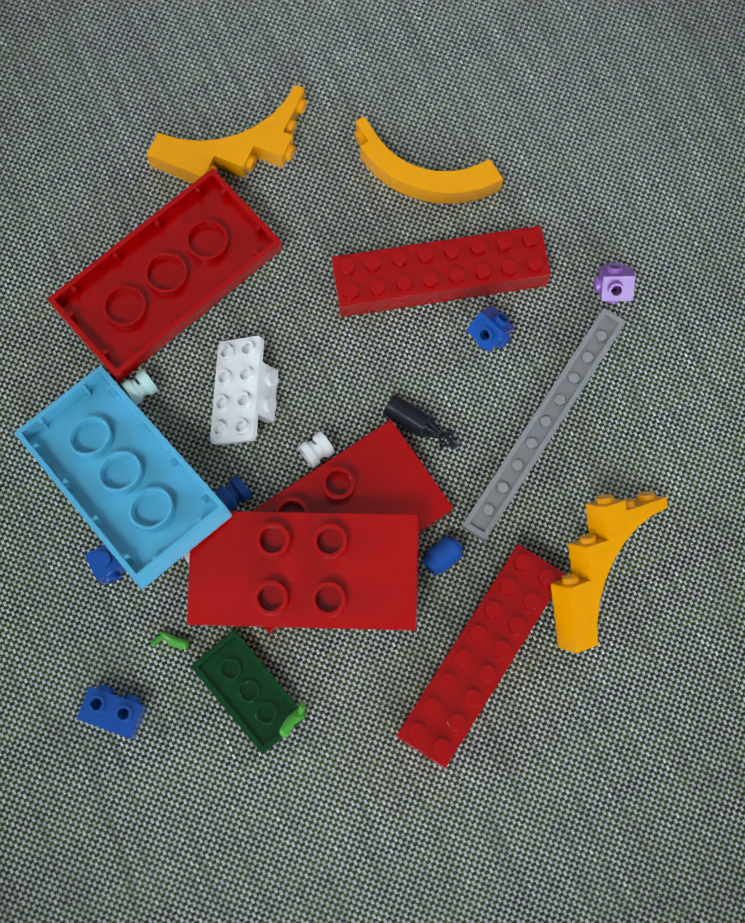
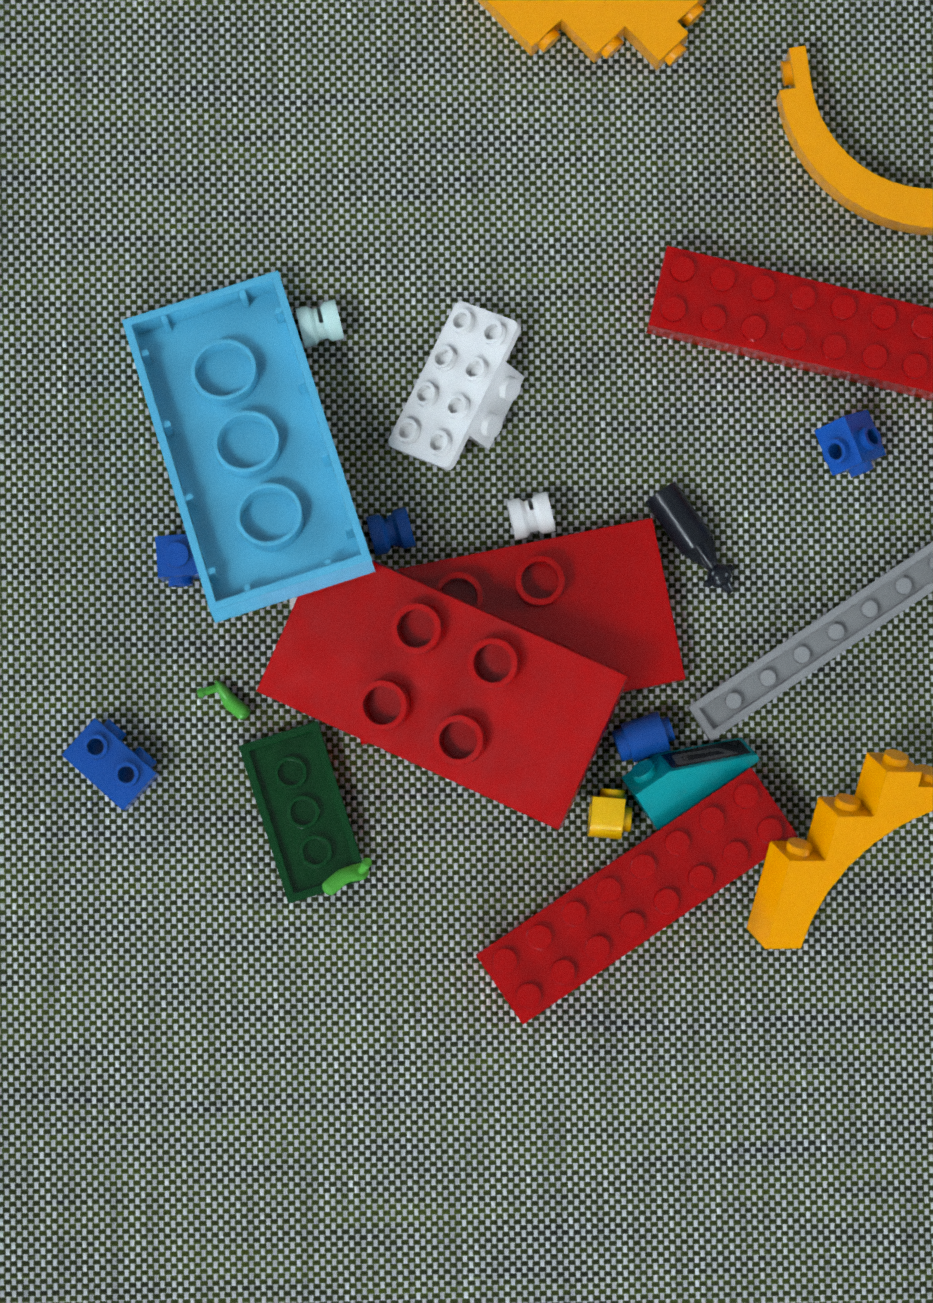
camera: 25 degrees right, 10 degrees up
(165, 274) = (422, 172): red plate -> none
(441, 612) = (608, 814): none -> yellow plate
(475, 572) = (683, 777): none -> teal slope

